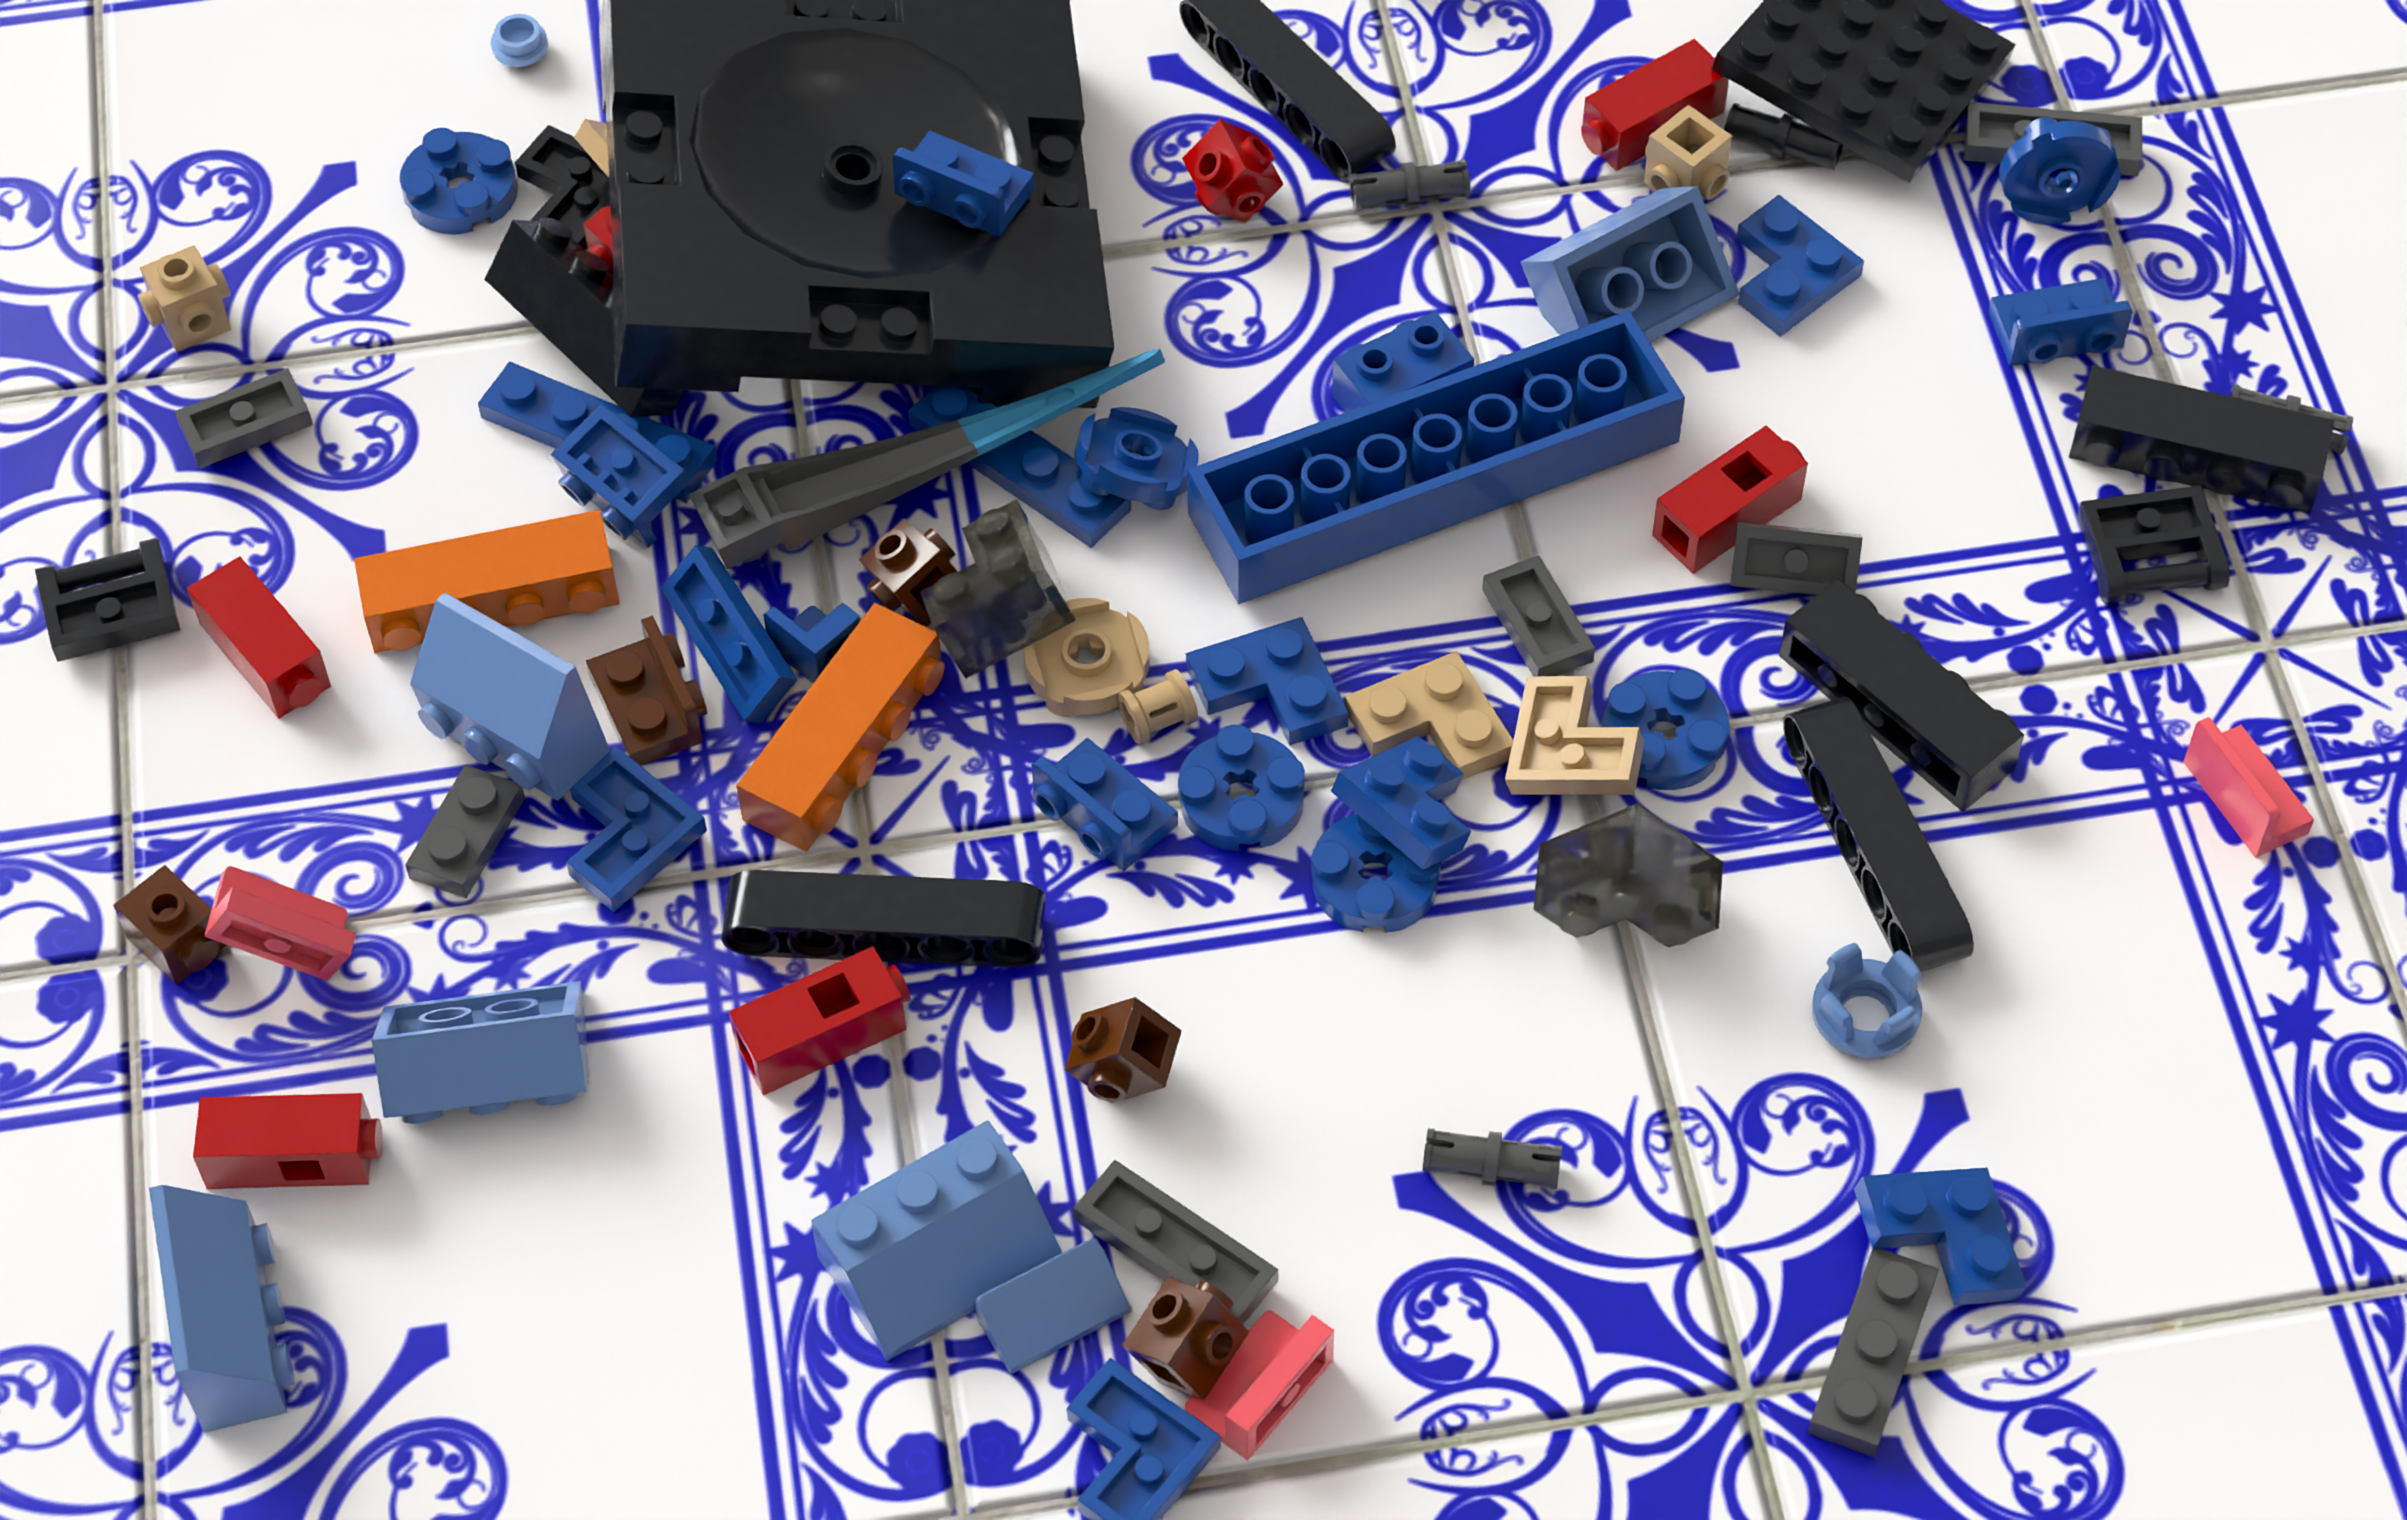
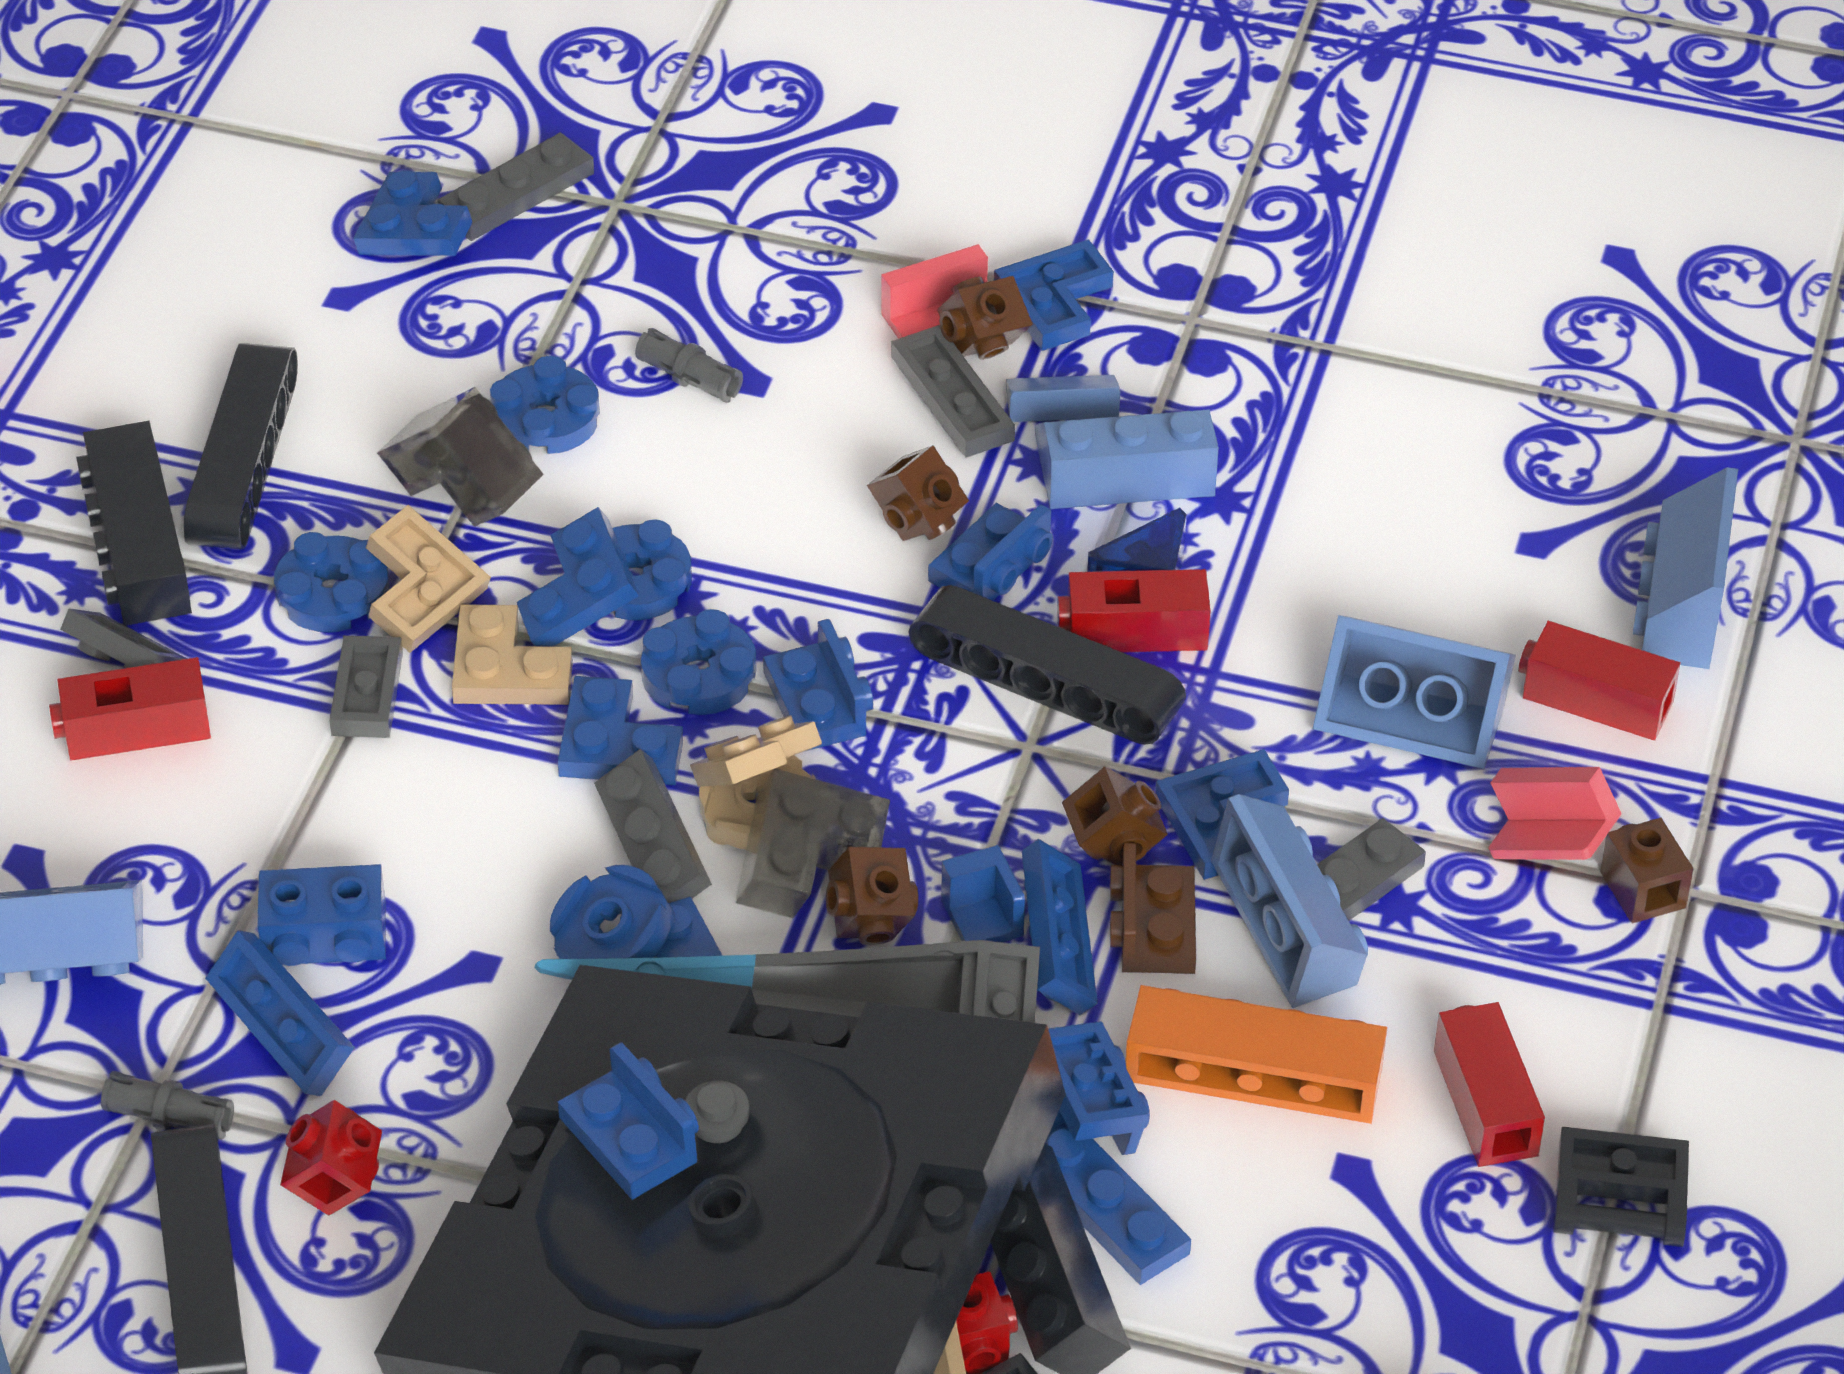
camera: 155 degrees left, 10 degrees down
(243, 418) = (1430, 1315): dark grey plate -> none
(718, 743) = (1114, 812): none -> reddish brown brick
(840, 1082) = (1149, 547): none -> clear blue slope
(841, 728) = (1000, 806): orange brick -> none
(897, 222) = (719, 1109): none -> dark grey plate
(1014, 1046) = (994, 551): none -> blue bracket
(1105, 619) = (749, 756): none -> tan plate
(1157, 707) = (717, 727): tan bush -> none
(1164, 577) = (652, 827): none -> dark grey plate
(1369, 284) = (279, 1013): none -> blue plate
(1434, 456) = (416, 812): blue brick -> none
(1617, 1003) = (553, 385): none -> blue plate
(1889, 983) = (343, 346): medium blue piece -> none

